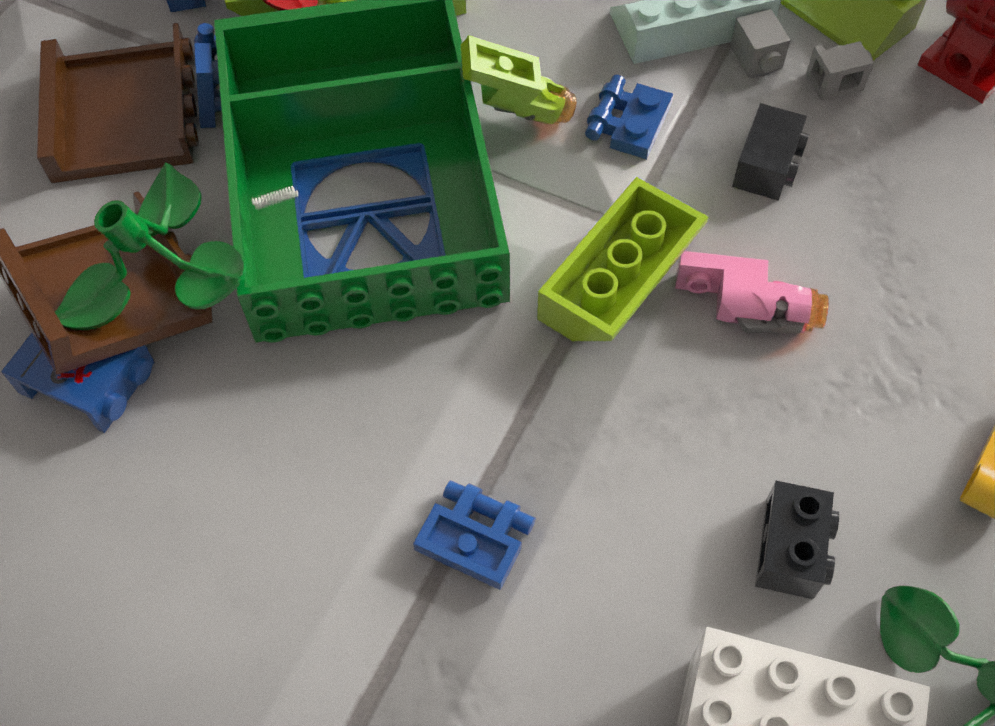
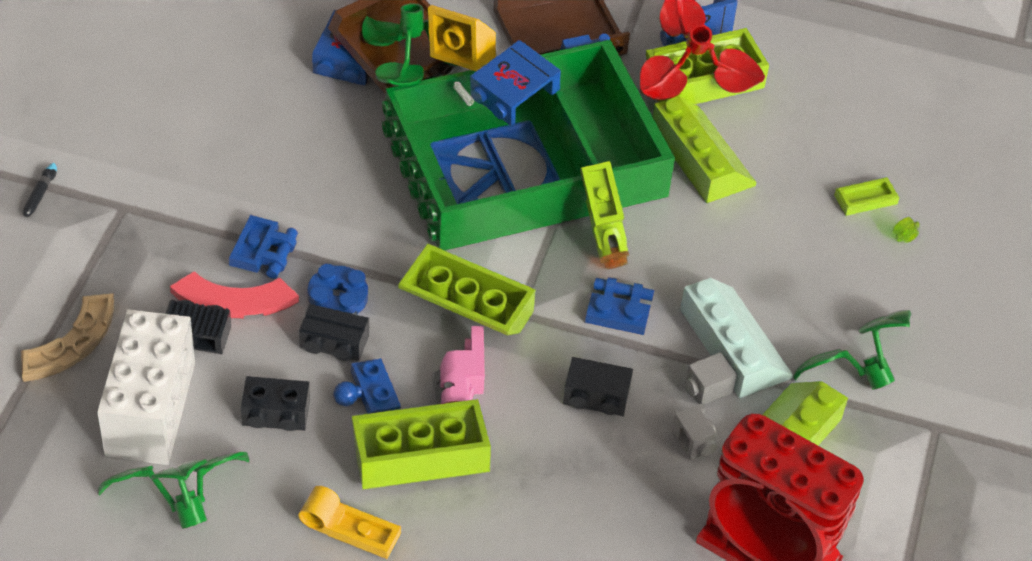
camera: 75 degrees right, 10 degrees down
(178, 177) = (460, 39): none -> yellow slope
(284, 123) = (512, 80): none -> blue panel
(577, 596) = (240, 301): none -> coral tile
(580, 414) = (343, 278): none -> blue plate
(636, 648) = (208, 324): none -> black brick
(662, 446) = (334, 333): none -> black brick
(763, 409) = (371, 386): none -> blue plate
(883, 352) = (421, 444): none -> lime slope

